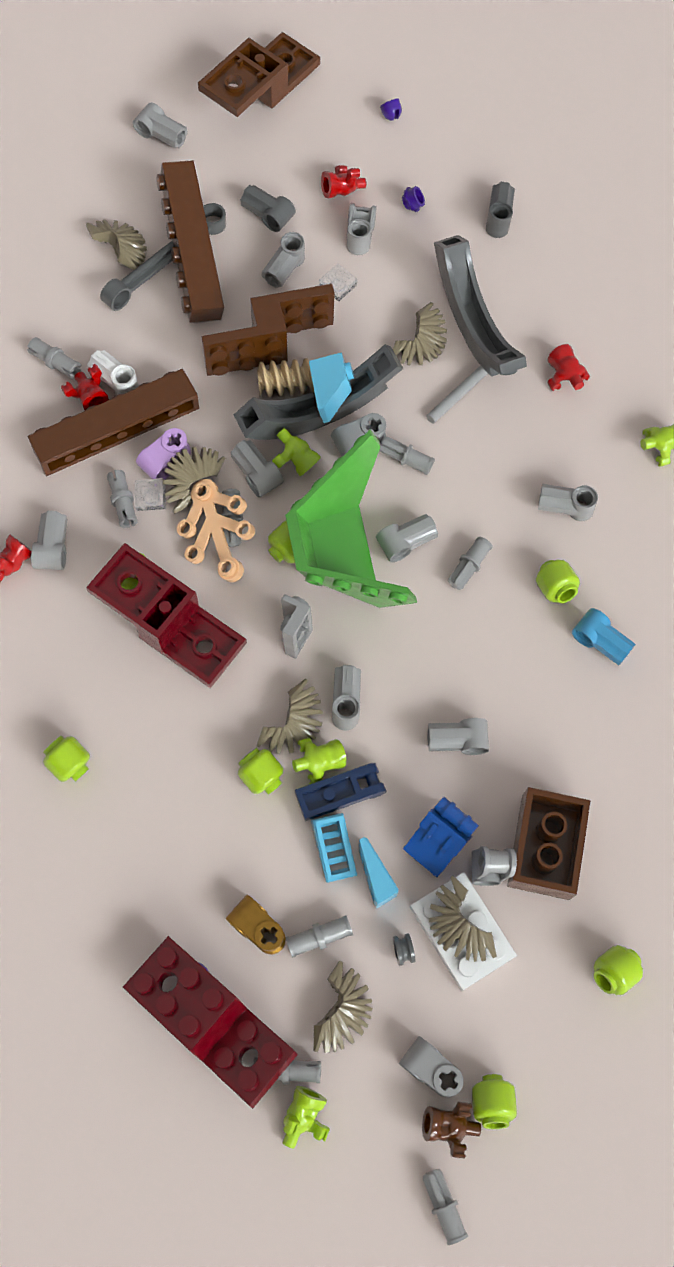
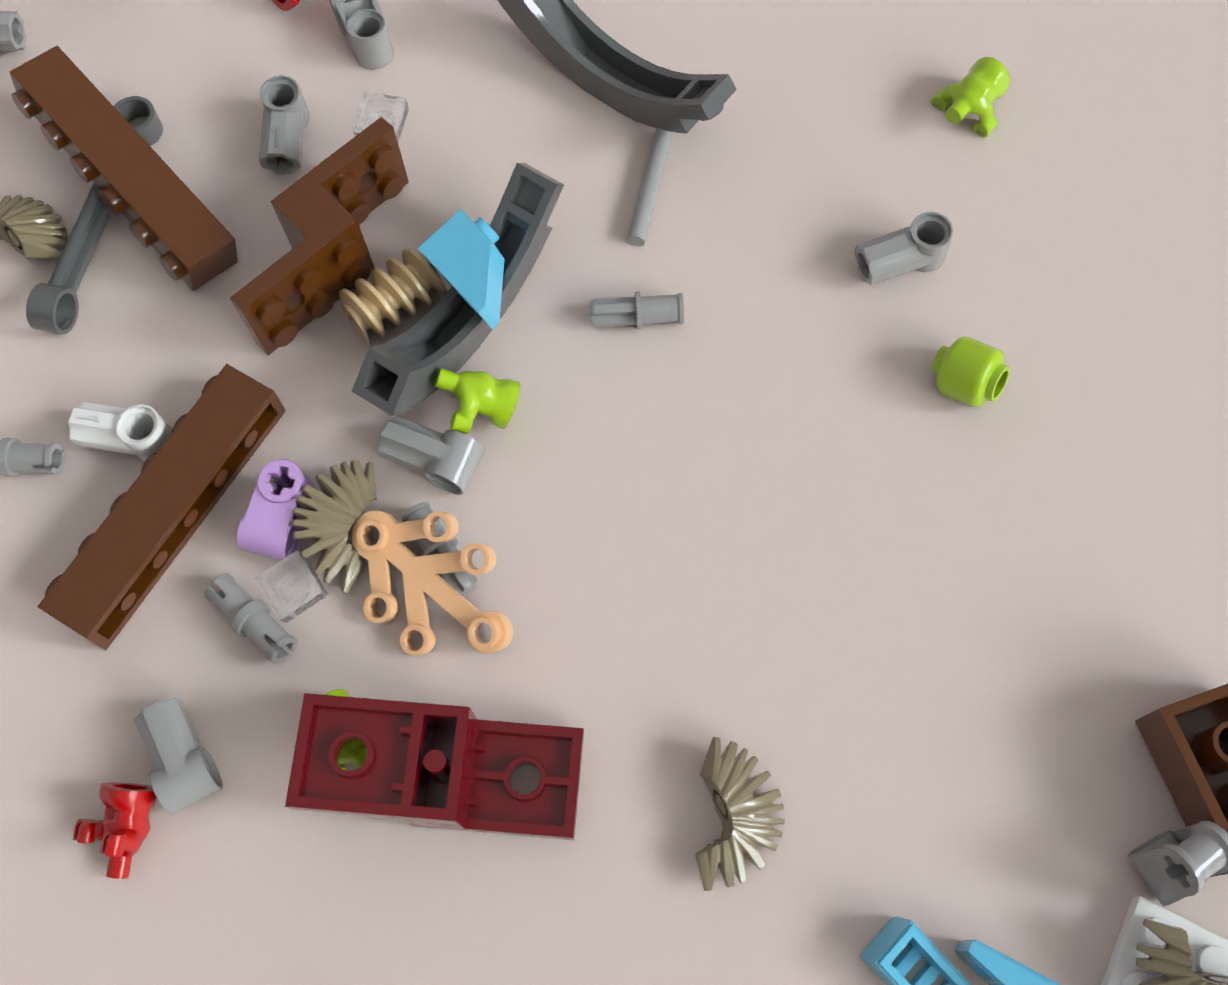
camera: 25 degrees left, 0 degrees up
(87, 389) = (92, 477): red piece -> none
(260, 771) = (740, 931): lime head -> none
(272, 210) = (222, 65): dark grey piece -> none
(281, 544) = (552, 537): lime head -> none
(296, 624) = (647, 647): light grey bracket -> none
(320, 758) = (816, 851): lime piece -> none
(330, 532) = (616, 496): bright green piece -> none
(339, 791) = (876, 887): dark blue plate -> none
(346, 695) = (789, 723): light grey piece -> none
(348, 433) = (549, 325): light grey piece -> none
(400, 540) = (712, 439): light grey piece -> none
(426, 340) = (557, 132): dark tan hair -> none
(440, 836) = (1080, 865): blue piece -> none
(467, 736) = (998, 682): light grey piece -> none
(470, 563) = (830, 417): light grey axle -> none
(566, 368) = (779, 68): red piece -> none
(597, 632) = (1070, 414): dark azure piece -> none

